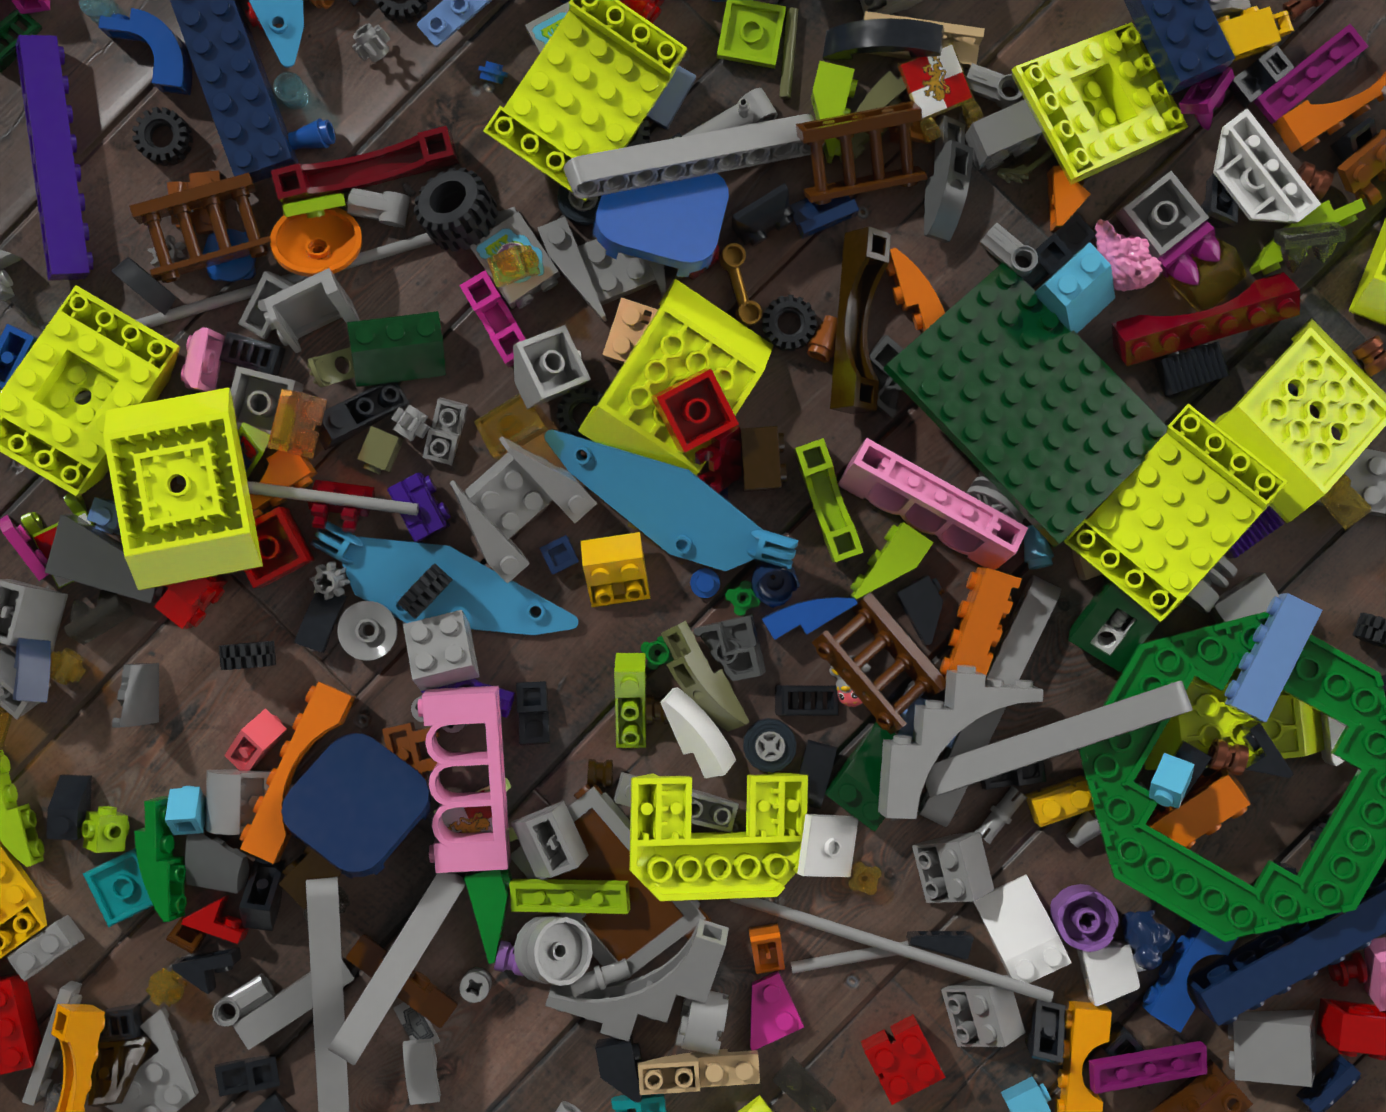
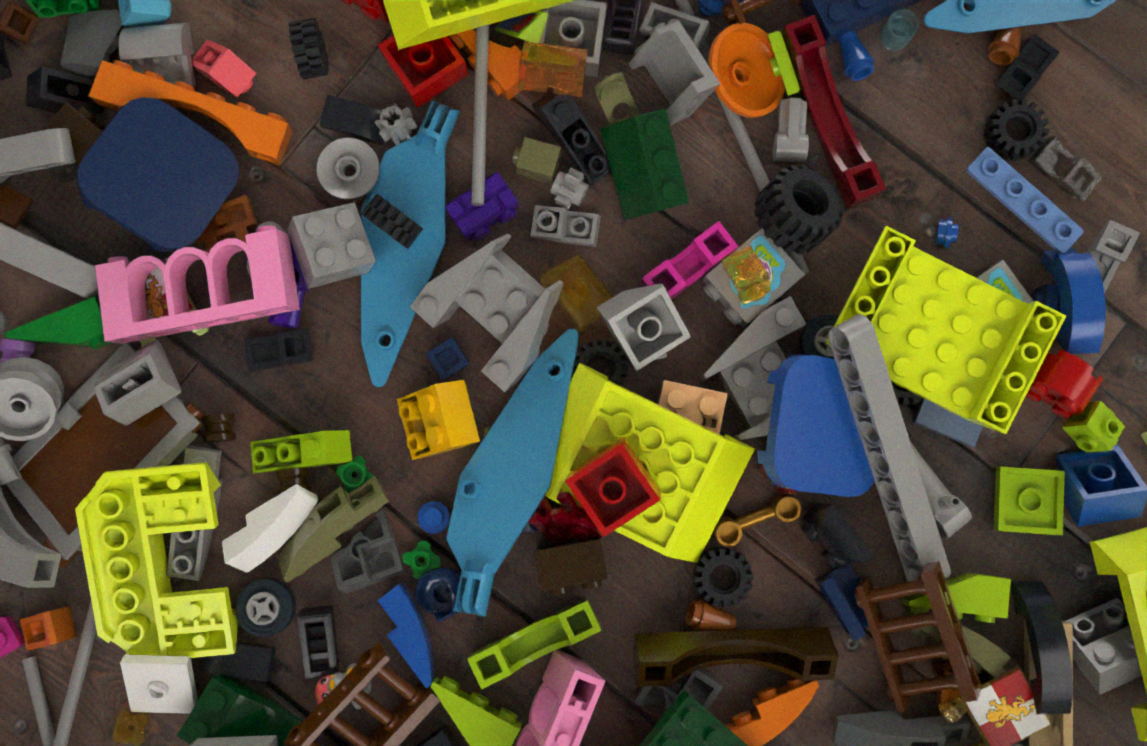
camera: 85 degrees right, 5 degrees down
(210, 921) = (31, 44): red slope -> none
(348, 514) = (464, 135): dark red plate -> none
(371, 42) = (960, 104): light grey gear -> none
(570, 896) = (82, 411): lime plate -> none
(788, 53) = (1011, 543): olive bar -> none

